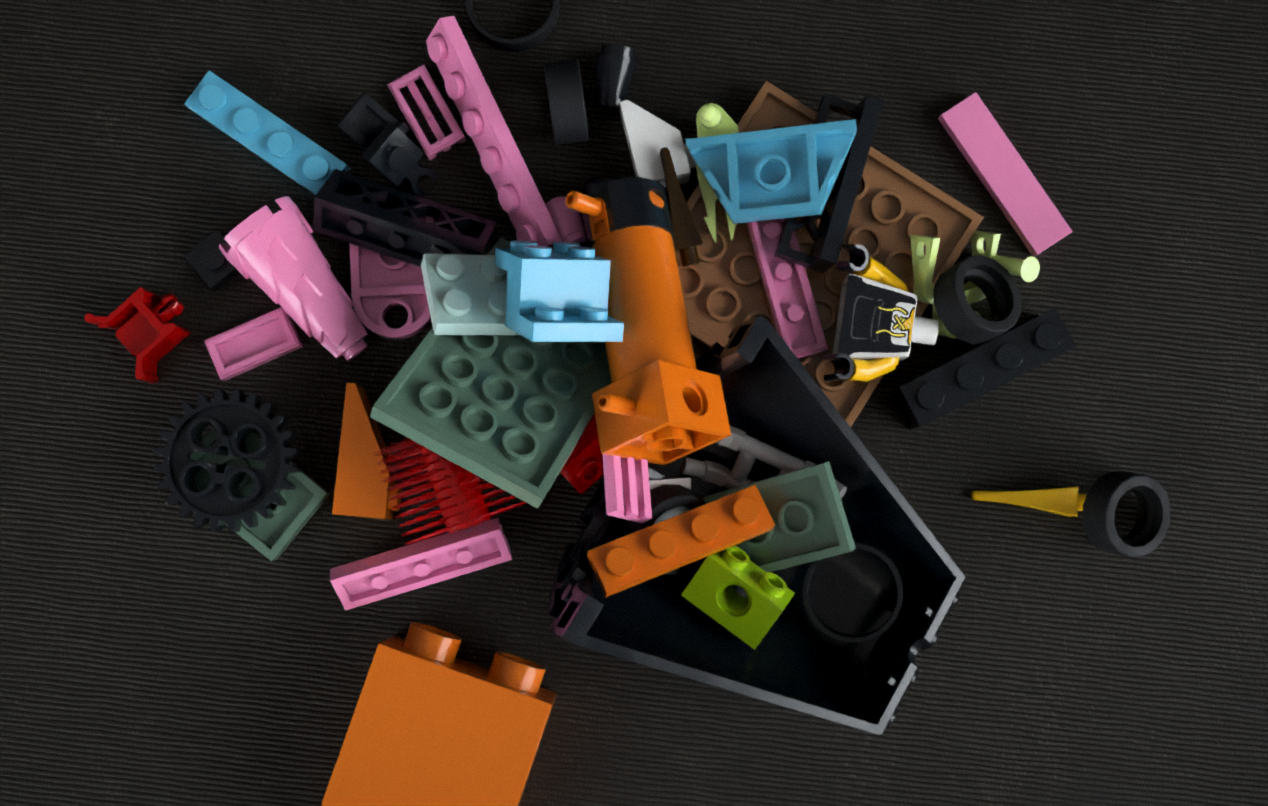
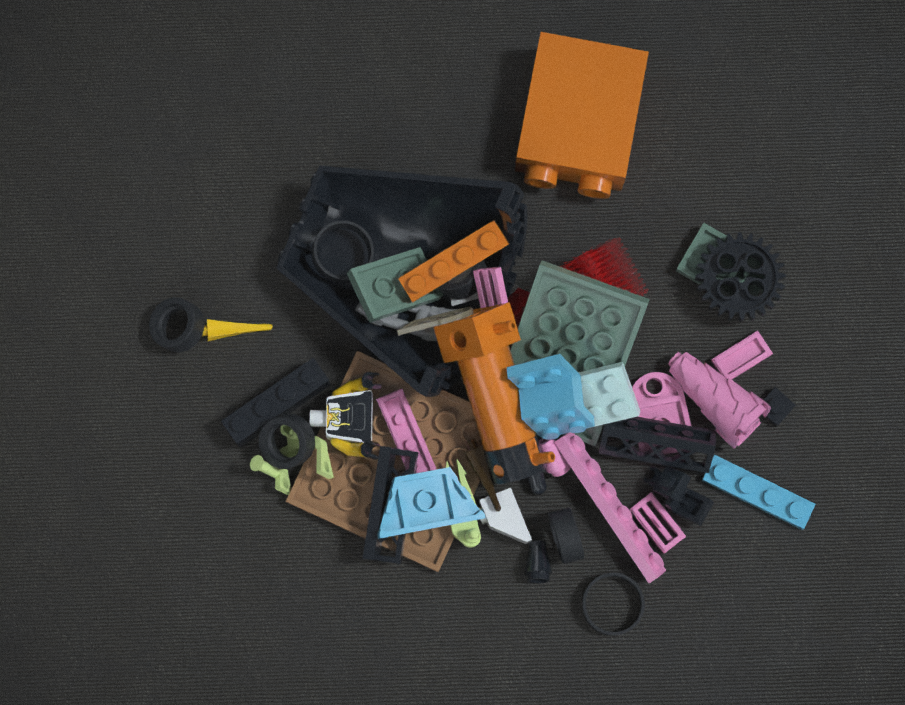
camera: 170 degrees right, 5 degrees down
(145, 329) = (810, 354): red piece -> none
(358, 476) = (657, 275): orange slope -> none
(420, 564) = (625, 226): bright pink plate -> none
(743, 616) = (412, 237): lime brick -> none
(769, 433) = (435, 320): none -> dark tan window
(1004, 174) = (273, 535): bright pink tile -> none

